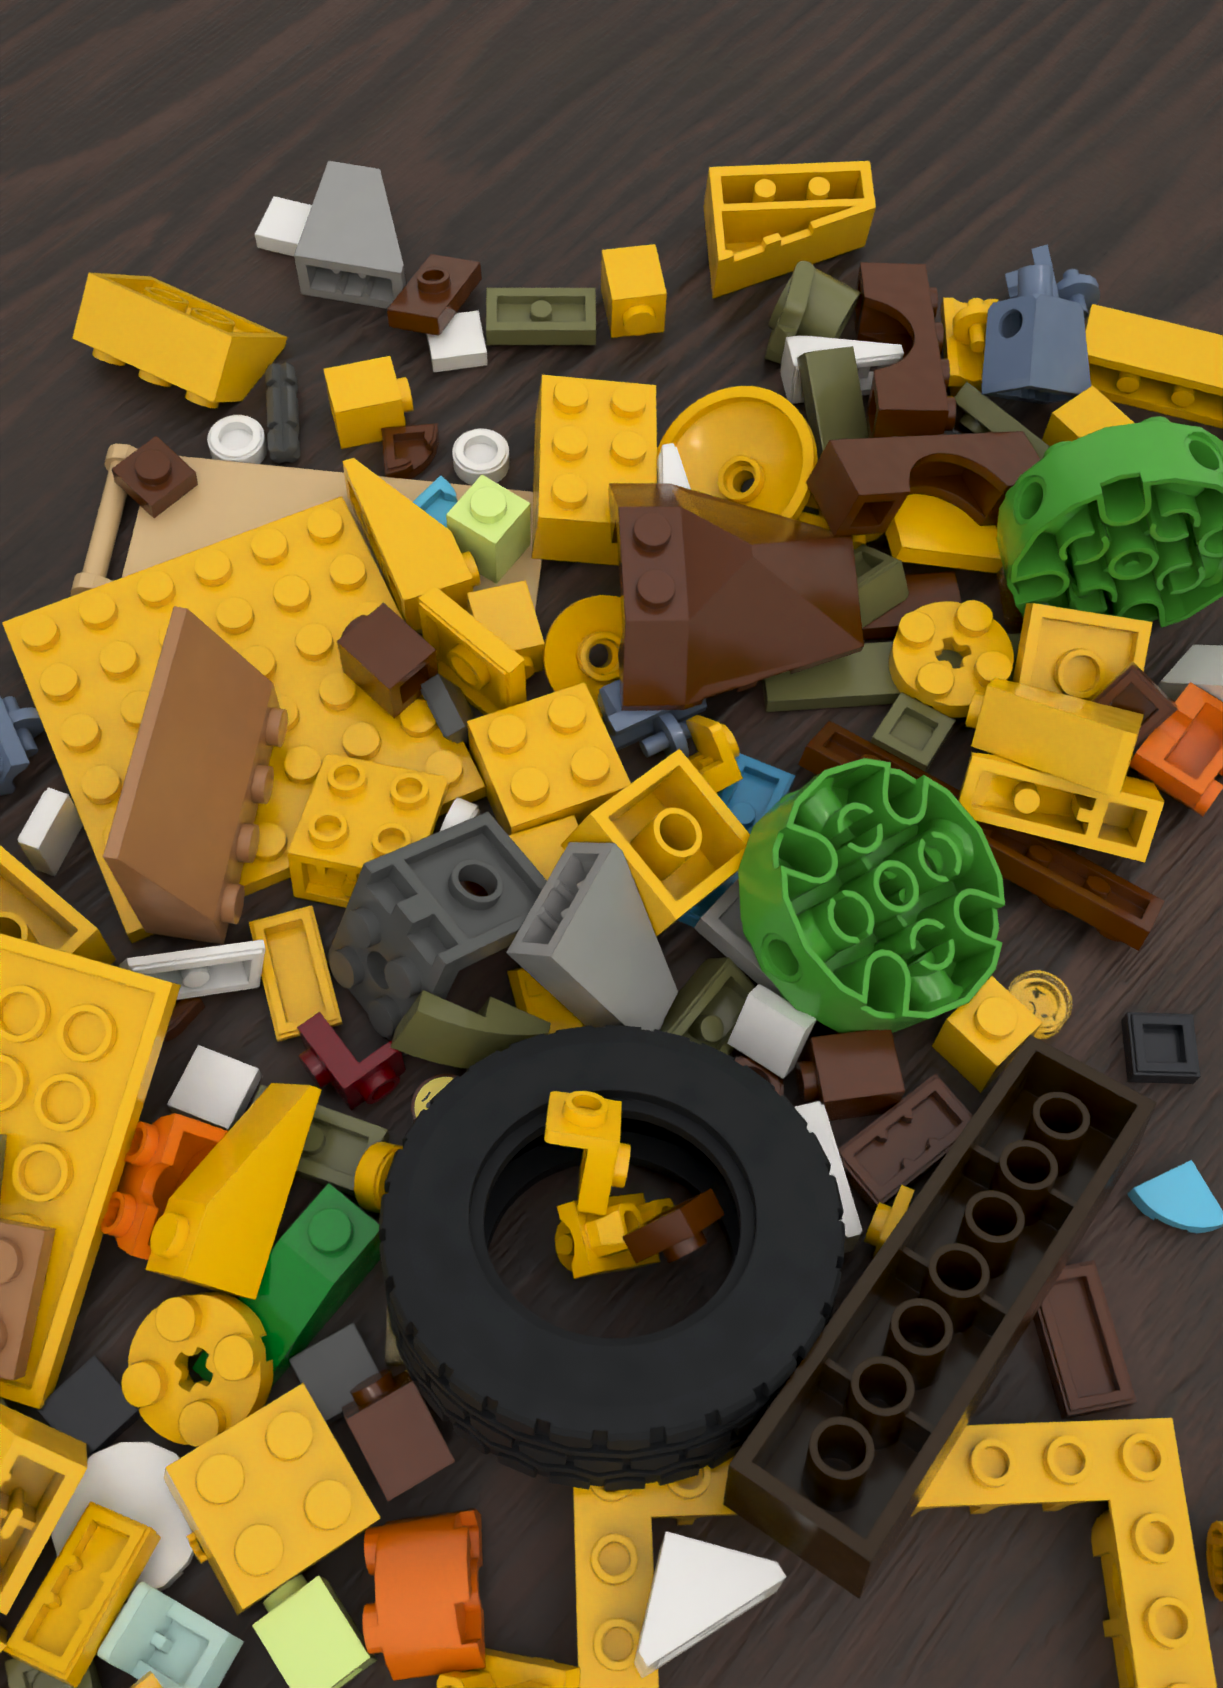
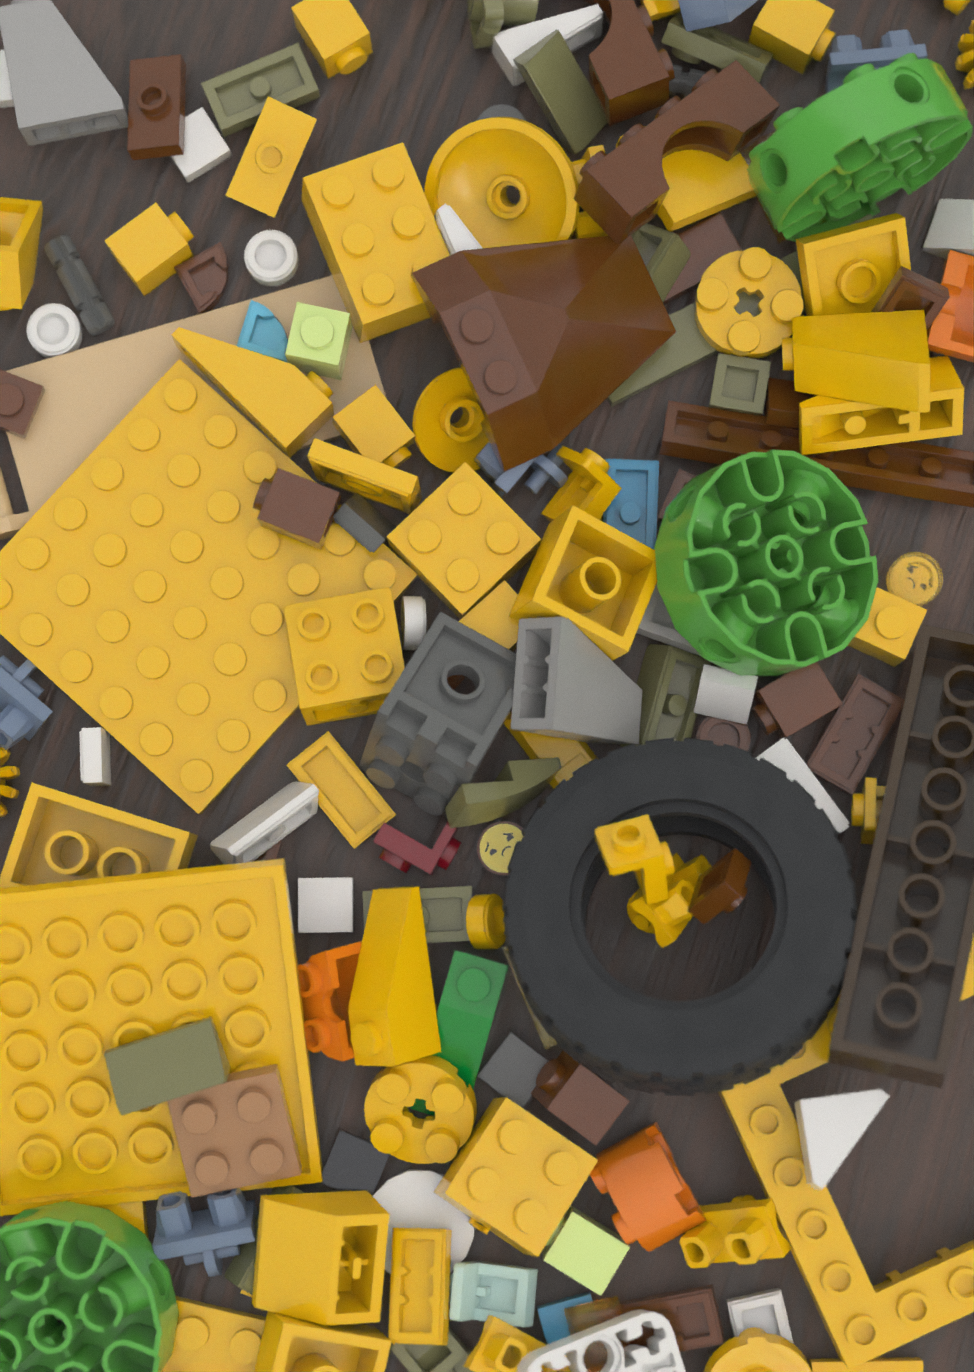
camera: 15 degrees left, 20 degrees up
(195, 785) = (215, 690): medium nougat slope -> none
(515, 370) = (271, 157): none -> yellow plate
(950, 767) = (783, 403): none -> reddish brown tile

